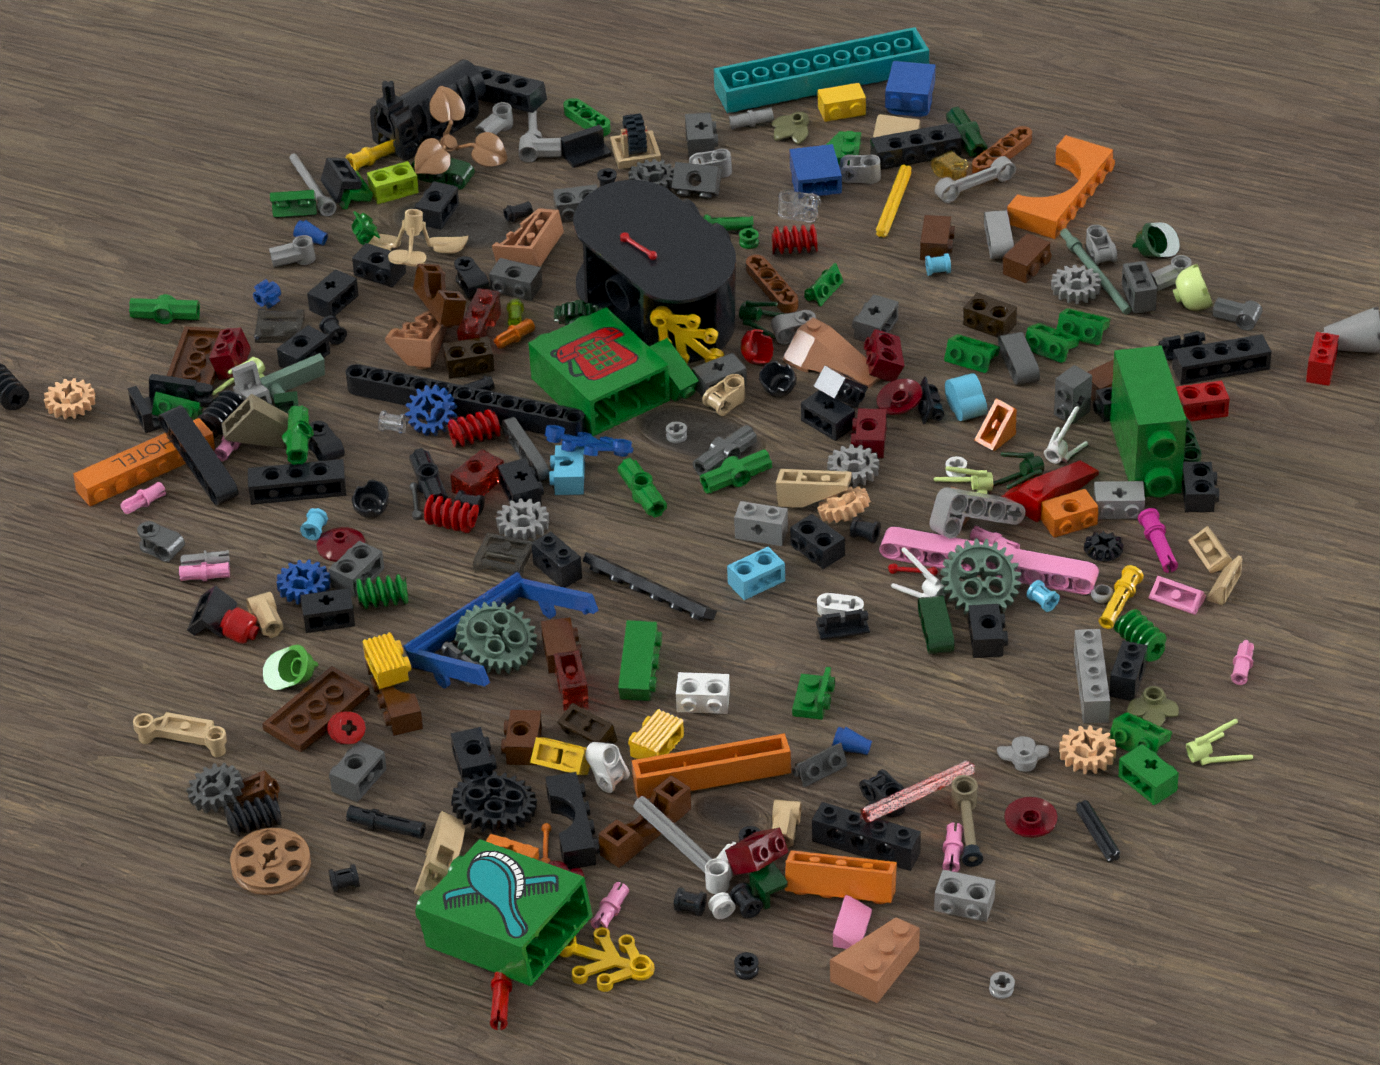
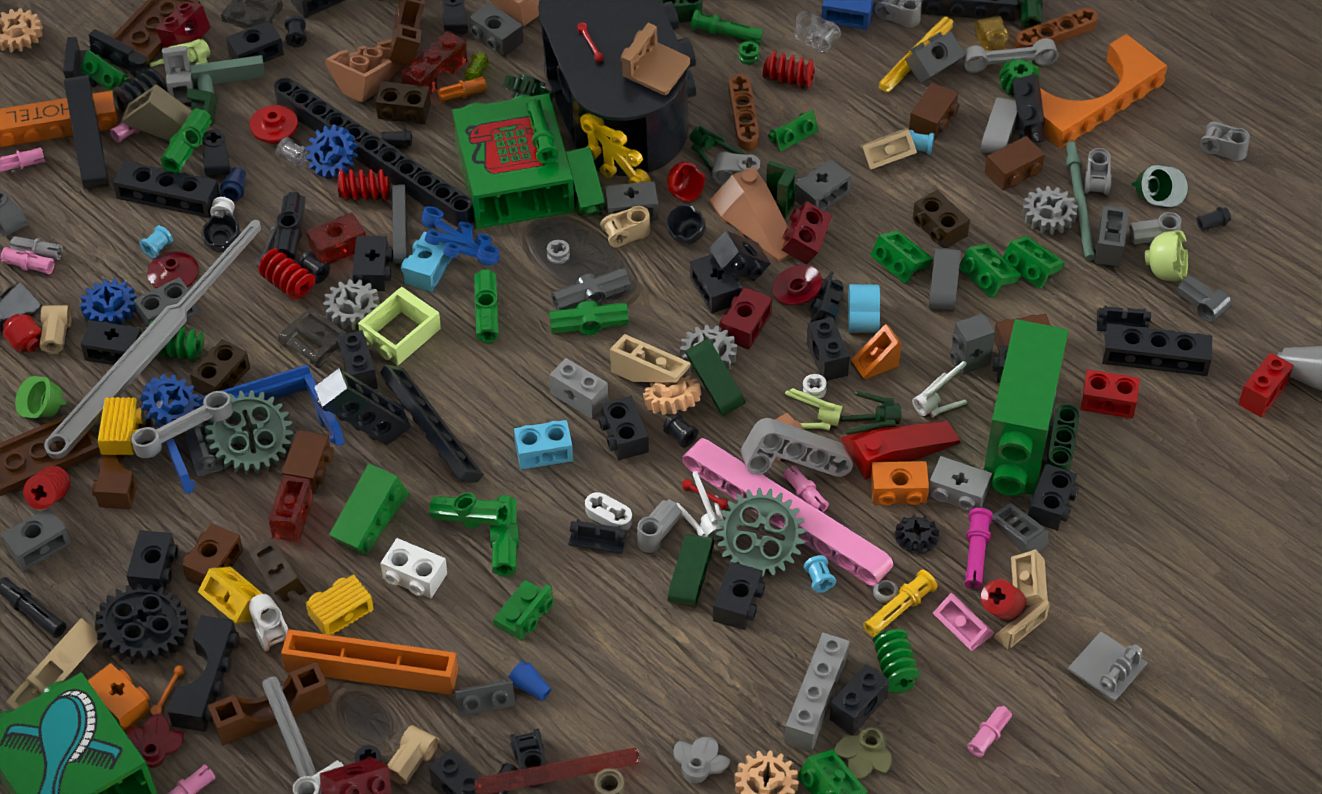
camera: 20 degrees right, 10 degrees up
(356, 462) = (234, 184): none -> dark blue cone
(356, 477) = (221, 206): none -> white bush
(361, 406) = (273, 124): none -> red piece
(365, 605) = (141, 352): none -> light grey piece
(419, 629) = (160, 392): none -> blue gear
(423, 660) = (182, 424): none -> light grey piece
(437, 600) = (220, 368): none -> dark brown brick
(570, 505) = (412, 307): none -> yellowish green window
(589, 576) = (362, 407): none -> black brick
(625, 339) = (542, 138): none -> green pin
(704, 247) = (652, 62): none -> medium nougat bracket
(727, 634) = (469, 510): none -> green piece
(764, 647) = (505, 540): none -> green piece
(843, 321) = (782, 185): none -> dark green panel
(875, 479) = (715, 377): none -> dark green beam
(888, 602) = (657, 525): none -> light grey piece
(914, 196) = (926, 65): none -> dark grey brick
(915, 275) = (889, 148): none -> tan panel
(953, 434) = (828, 349): none -> black brick
(993, 193) = (1014, 70): none -> green gear
(1017, 209) = (1029, 107): none -> black hinge
(1192, 194) = (1227, 141): none -> light grey piece
(1192, 518) = (1034, 539): none -> dark grey slope
(1204, 564) = (1003, 599): none -> red piece
(1216, 251) = (1213, 219): none -> black pin
(1309, 589) = (1108, 665): none -> light grey hinge

